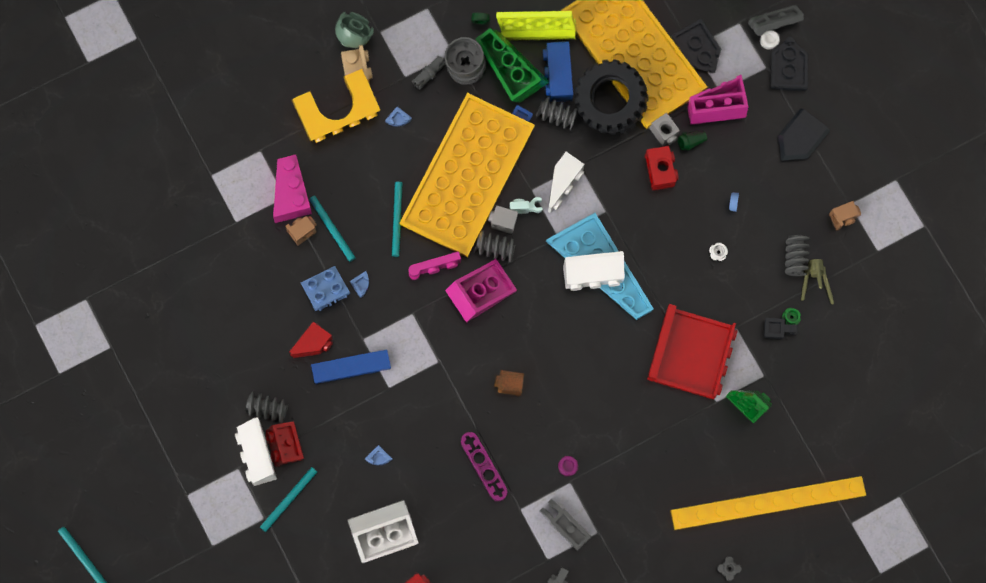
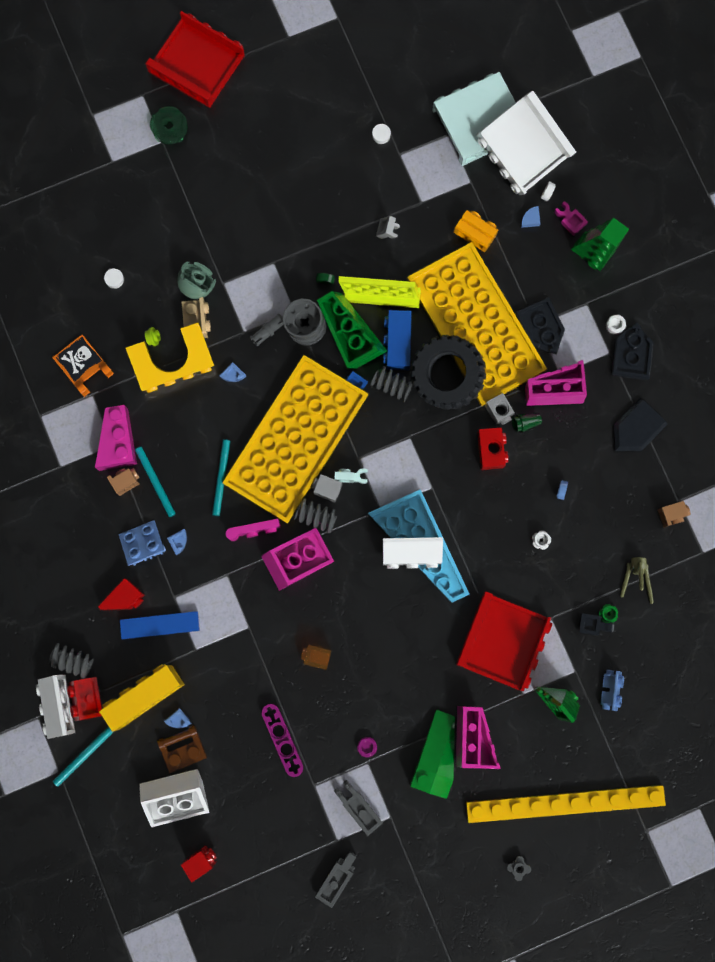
camera: 10 degrees right, 5 degrees up
(245, 119) = (80, 362): none -> flag
(271, 35) = (114, 278): none -> white tile
(315, 88) = (152, 336): none -> lime plate
(342, 434) = (138, 700): none -> yellow brick
(387, 490) = (184, 755): none -> reddish brown plate
(565, 173) = (393, 447): white slope -> none
(637, 474) = (436, 762): none -> green wedge
(672, 448) = (473, 740): none -> dark pink wedge
(776, 19) = (624, 304): dark grey plate -> none
(796, 254) = (620, 551): dark grey piece -> none
(802, 397) = (612, 697): none -> medium blue hinge

